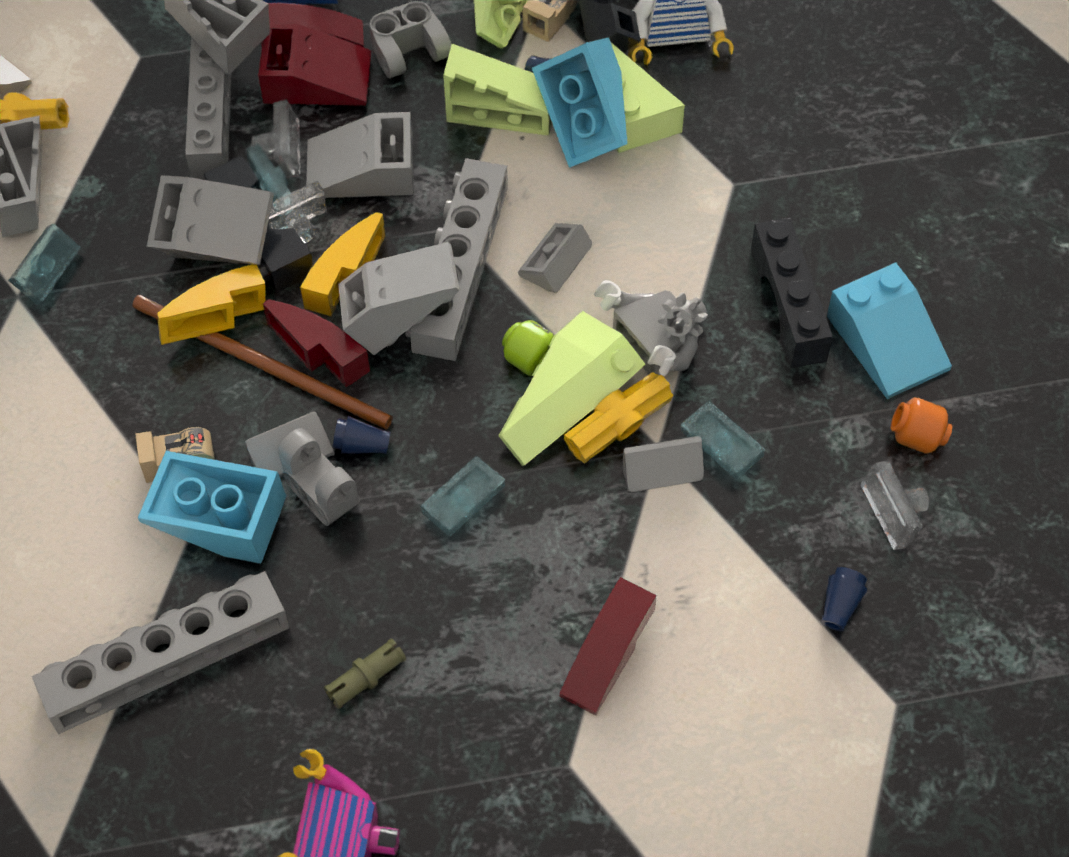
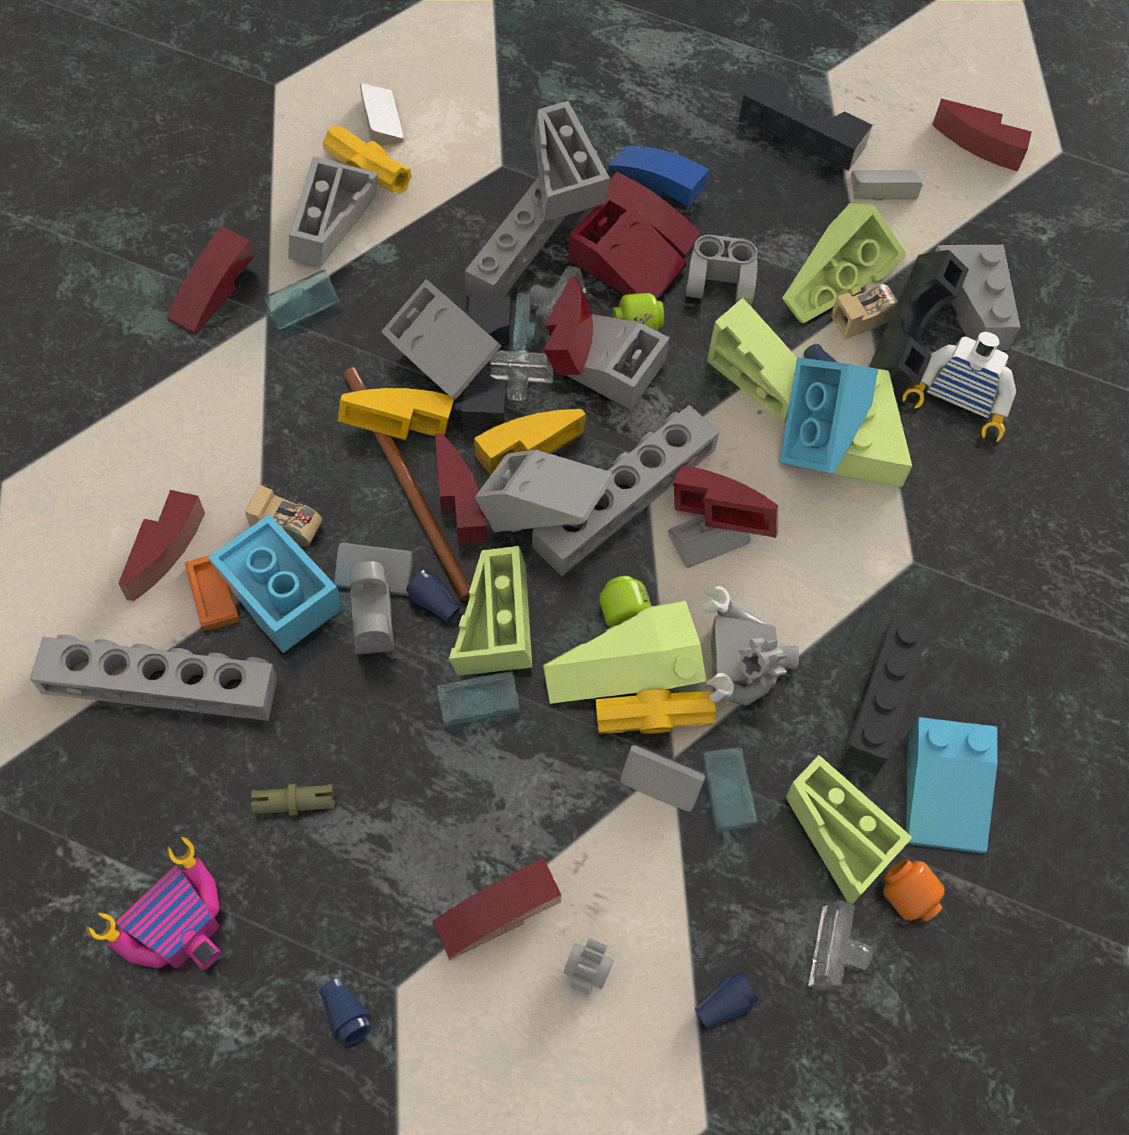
camera: 30 degrees right, 5 degrees up
(77, 537) = (161, 543): none -> dark red slope
(154, 554) = (211, 595): none -> orange tile
(317, 154) = (569, 331): none -> dark red slope
(362, 104) = (642, 309): none -> lime head
(433, 419) = (496, 620): none -> yellowish green wedge
(544, 808) = (345, 1014): none -> dark blue cone
(555, 217) = (724, 502): none -> dark red slope
(716, 640) = (588, 966): none -> light grey gear
(836, 409) = (845, 827): none -> yellowish green wedge

